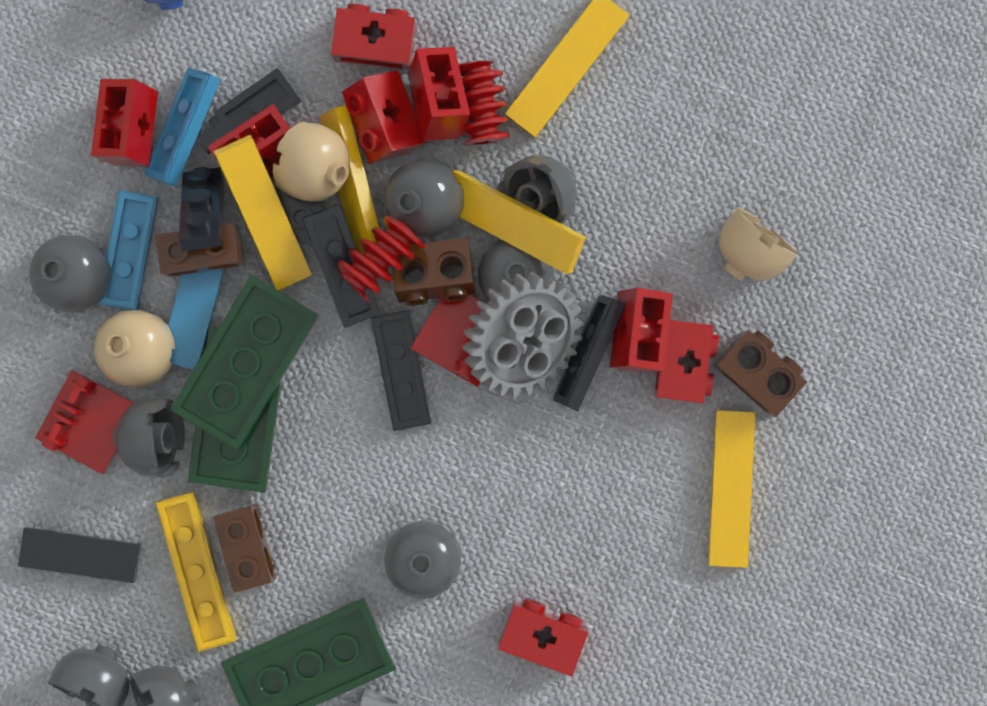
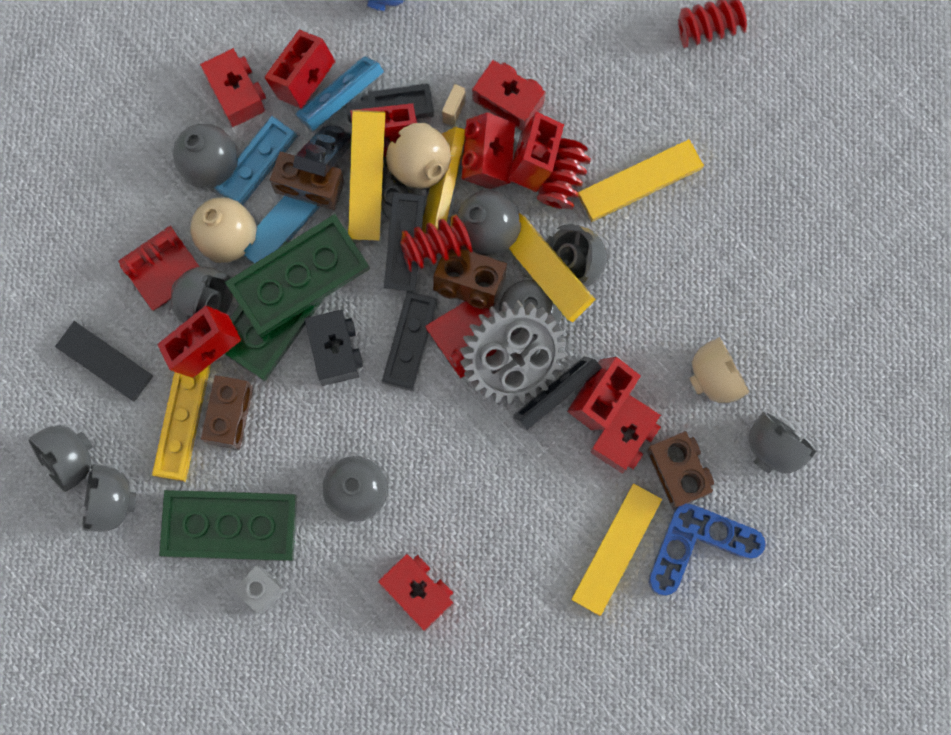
camera: 25 degrees right, 10 degrees down
(38, 169) = (223, 73): none -> red brick
(177, 490) = (199, 342): none -> red brick
(302, 410) = (322, 332): none -> black brick
(318, 80) = (454, 105): none -> tan tile
(802, 439) = (688, 538): none -> blue beam
(853, 296) = (778, 445): none -> dark grey cylinder

